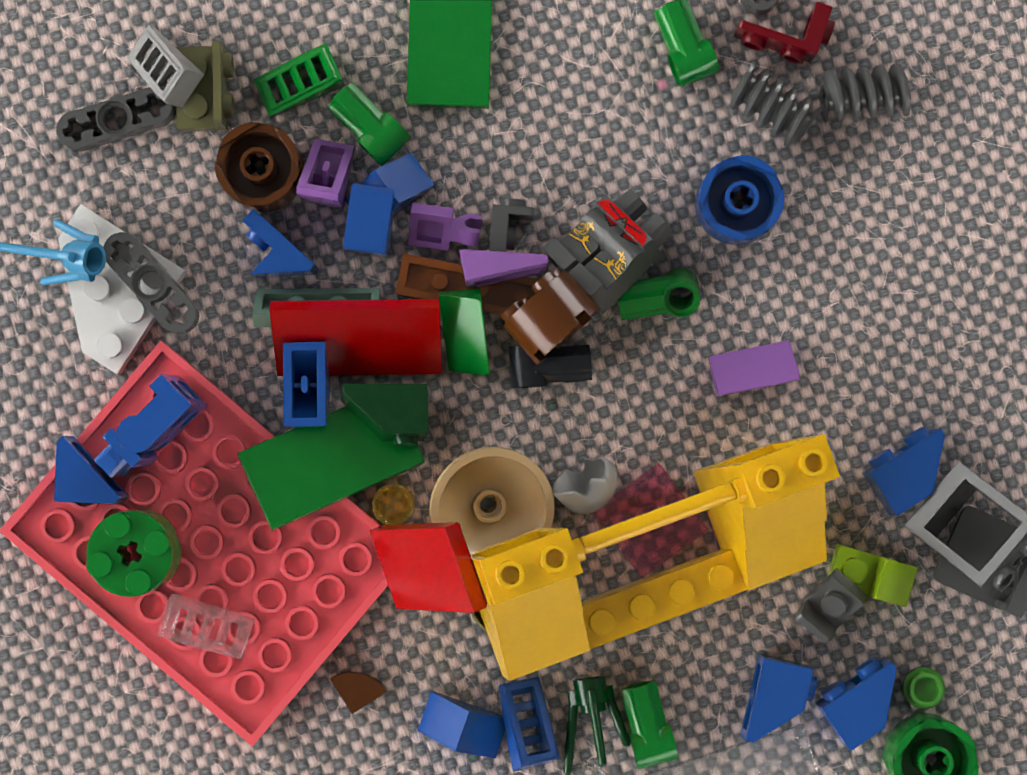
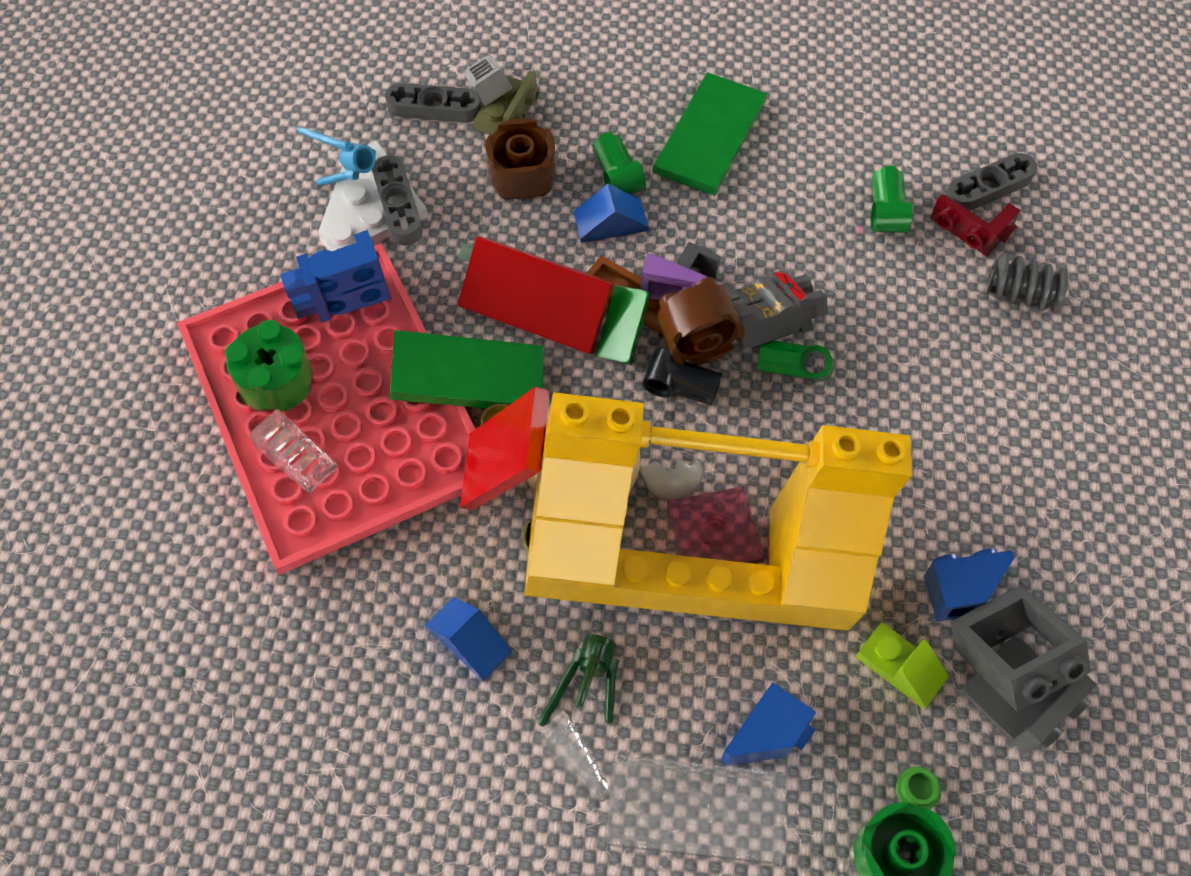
camera: 20 degrees right, 25 degrees down
(81, 478) = (260, 298): blue slope -> none
(283, 258) = (504, 220): blue slope -> none
(292, 67) = (597, 116): green slope -> none
(305, 384) = (477, 307): blue slope -> none
(326, 174) = (565, 189): medium lavender slope -> none
(357, 689) = (392, 567): reddish brown tile -> none
(369, 220) = (584, 220): blue slope -> none
(390, 410) = (534, 349): dark green slope -> none
(435, 227) = (632, 248): medium lavender plate -> none
(541, 720) = (514, 683): blue slope -> none
(650, 734) = (636, 715): green piece -> none
(760, 190) = (892, 315): blue brick -> none
(773, 105) = (945, 266): dark grey piece -> none
(830, 606) = (853, 668): dark grey bracket -> none
(861, 704) = (847, 775): blue slope -> none

